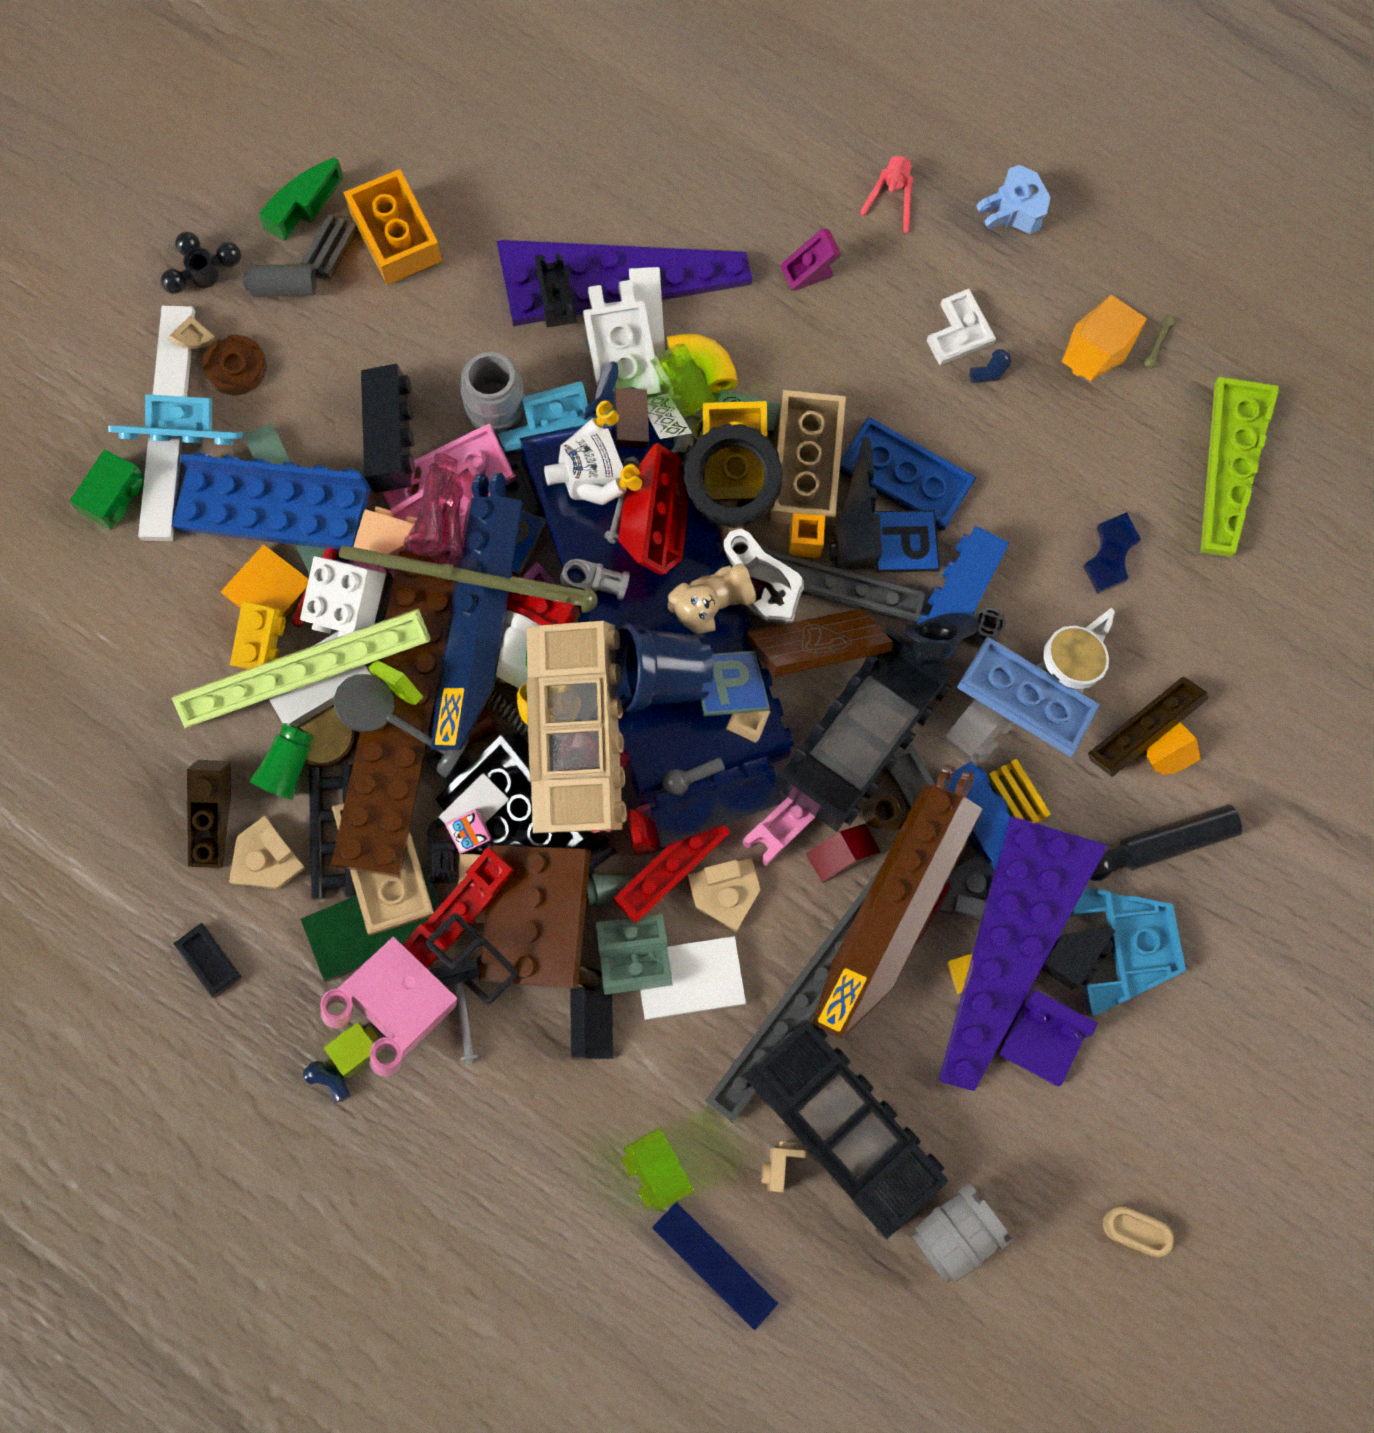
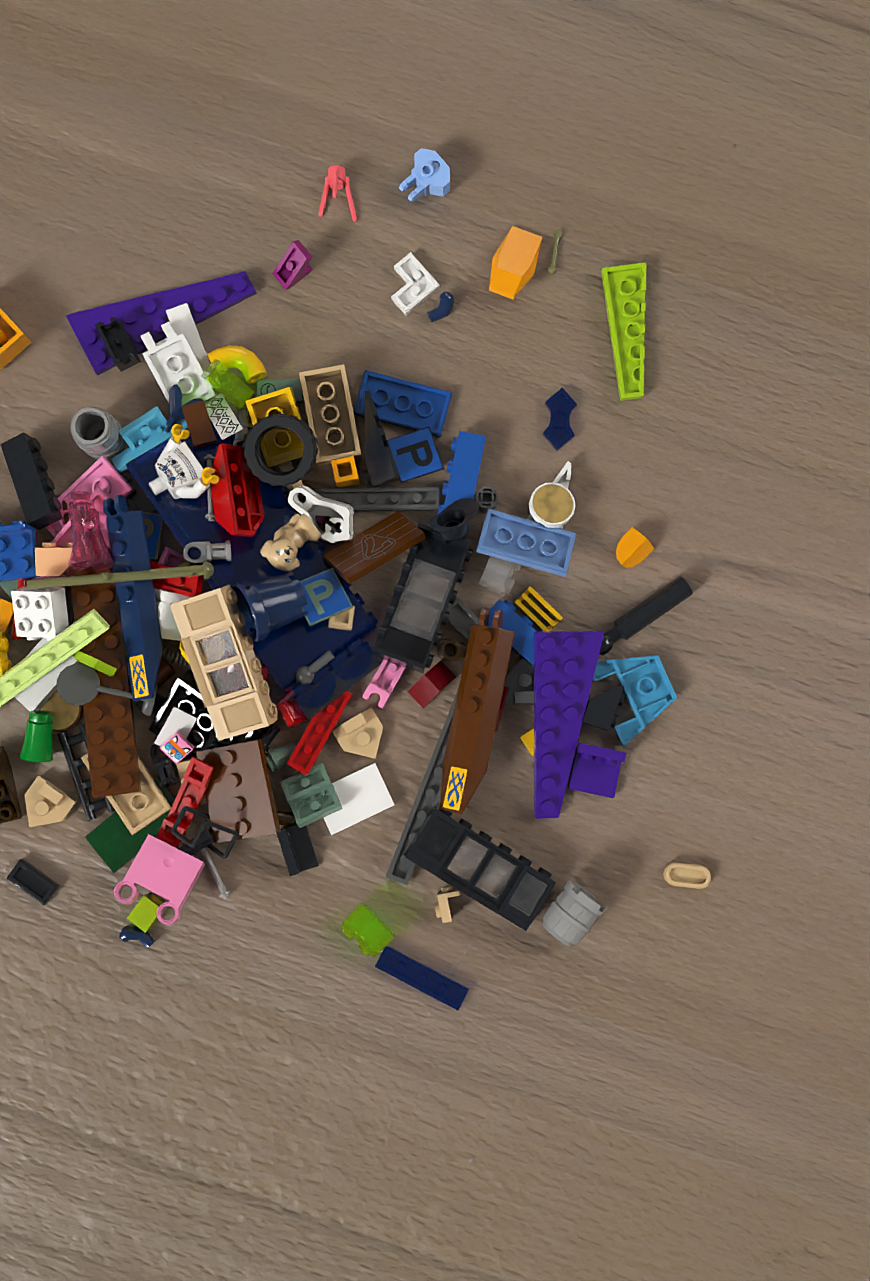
camera: 10 degrees left, 10 degrees up
(1148, 726) = (613, 536): dark brown tile -> none

